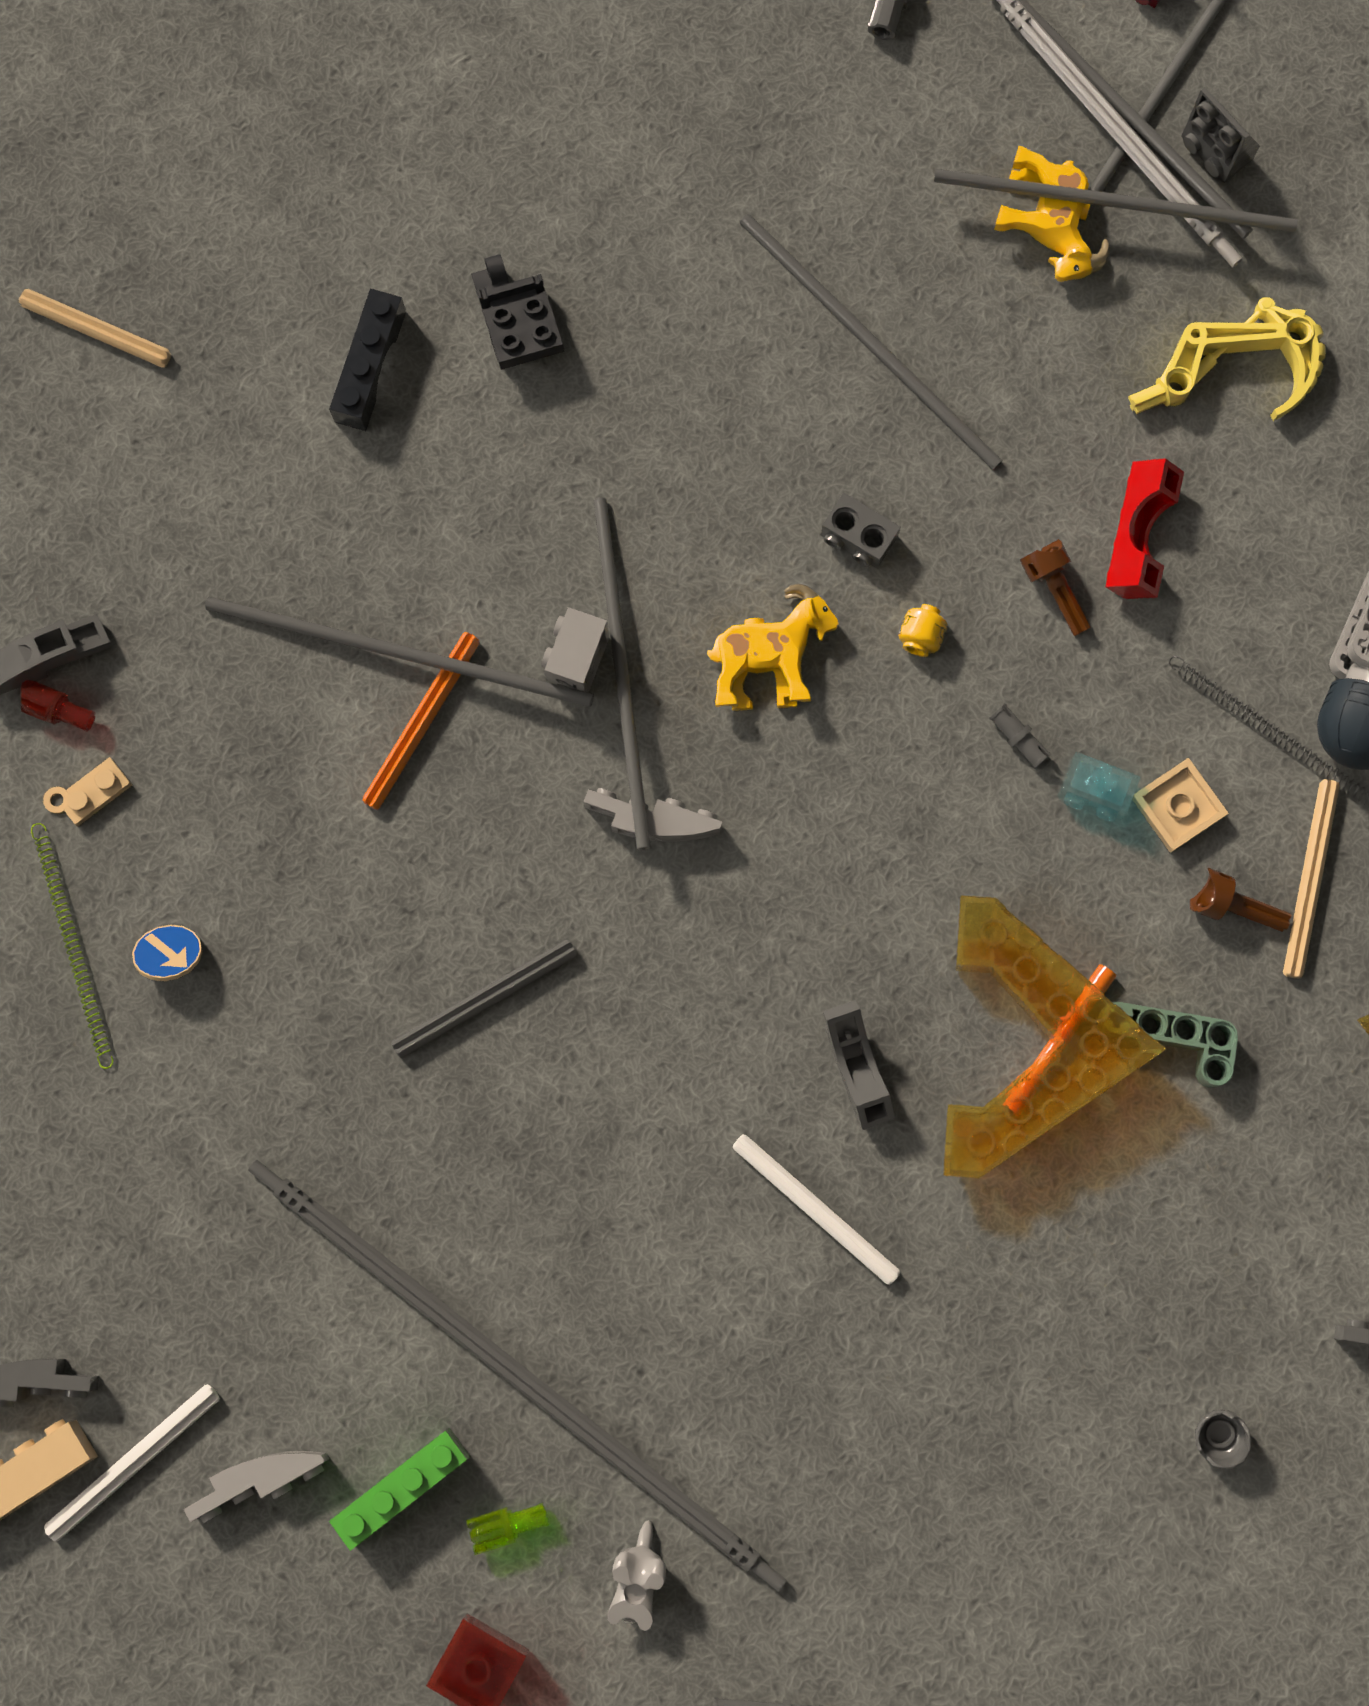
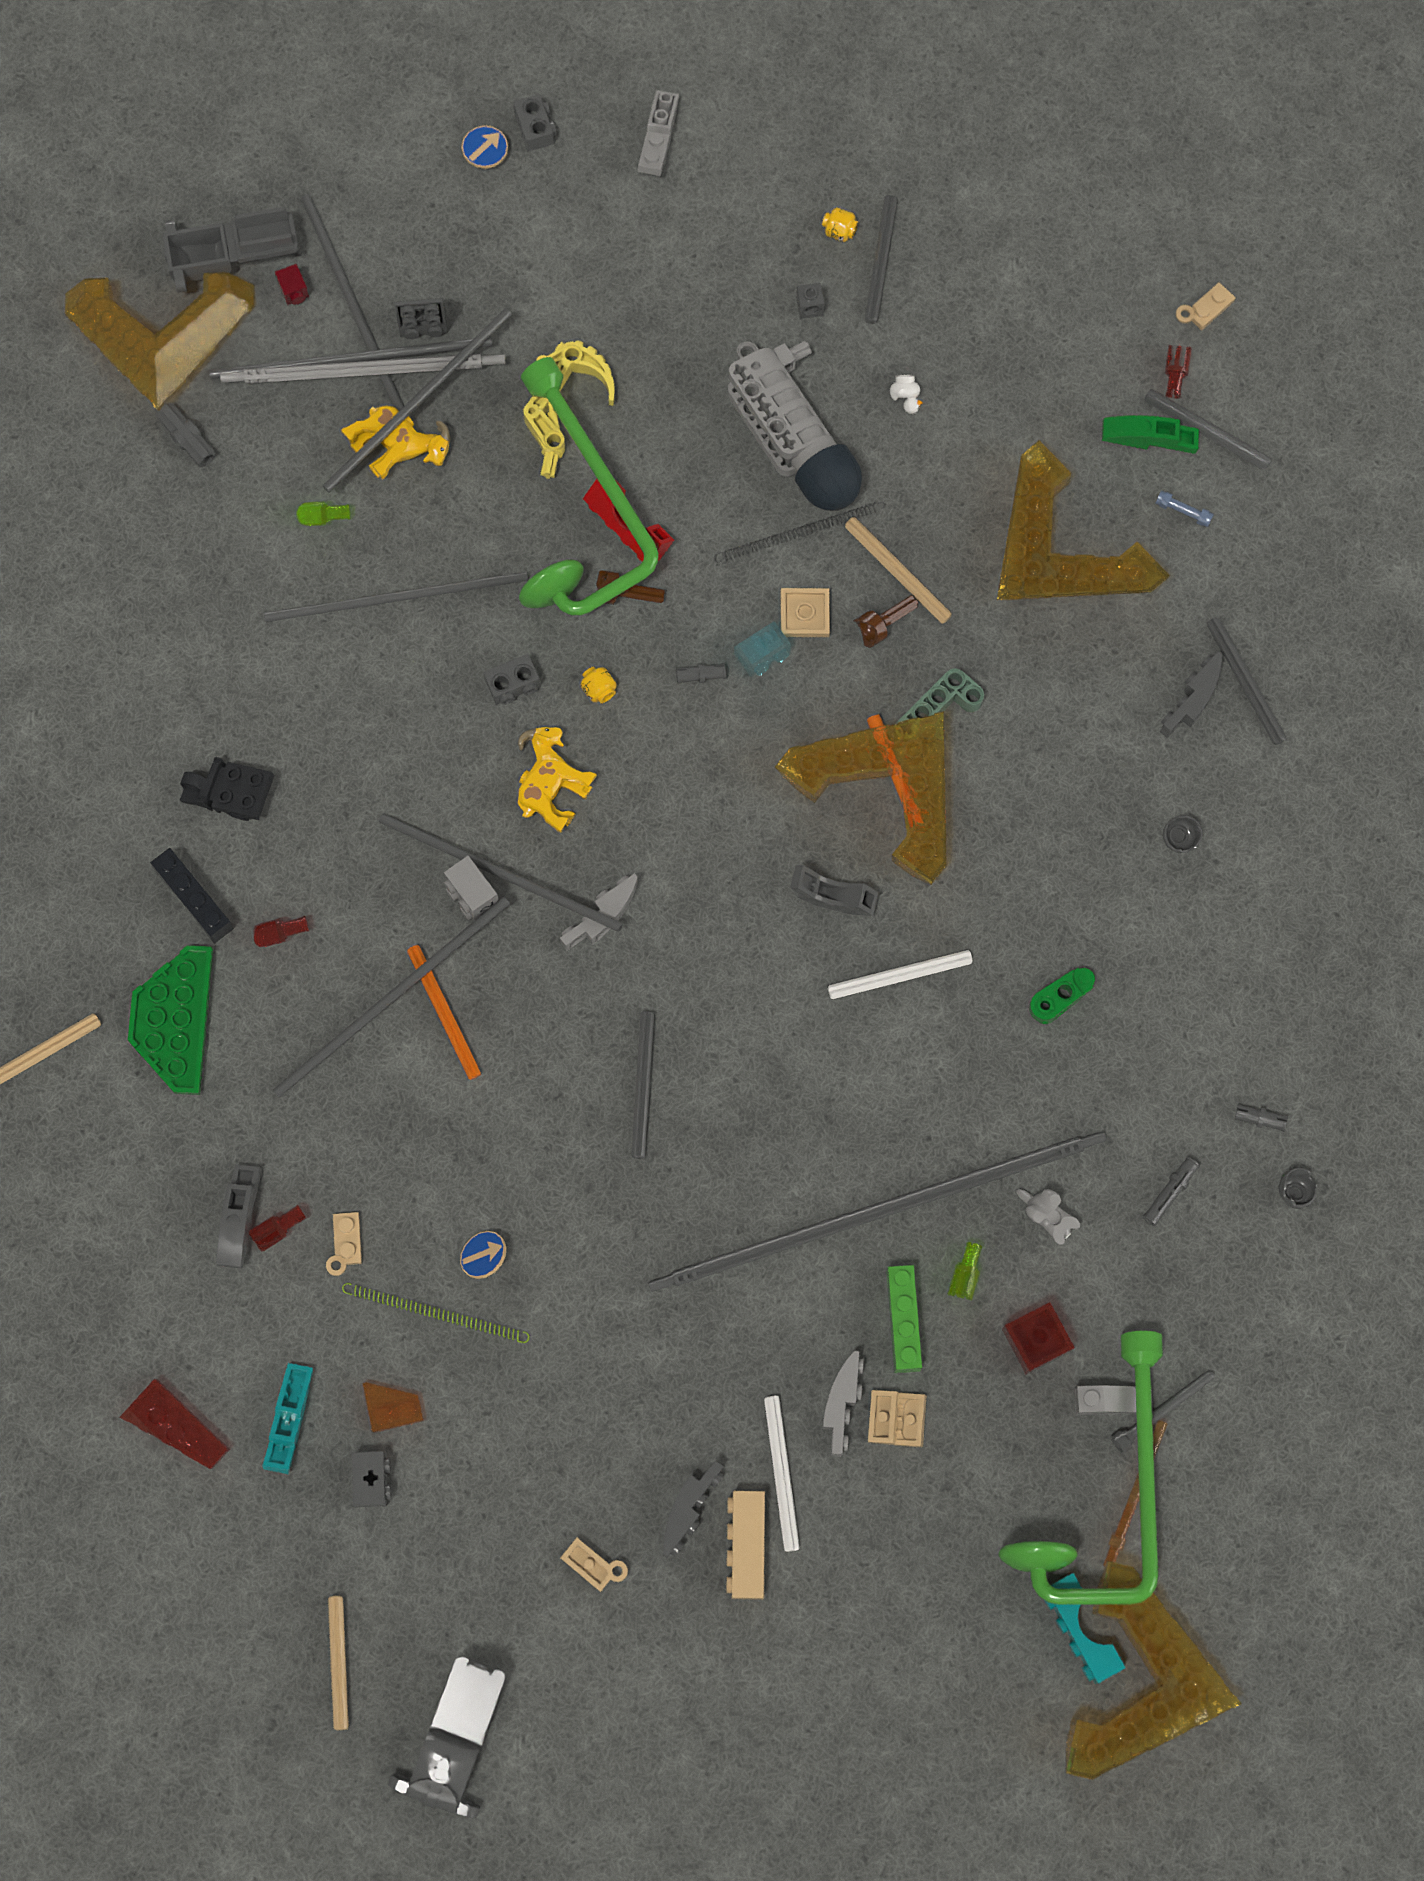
camera: 60 degrees left, 5 degrees down
(216, 436) = (171, 1019): none -> green plate
(281, 1557) = (897, 1418): none -> tan slope
(391, 478) = (277, 931): none -> clear red arm
(906, 192) = (320, 513): none -> clear neon green arm
(947, 1431) = (1076, 983): none -> green piece
(1011, 501) = (560, 579): none -> bright green piece

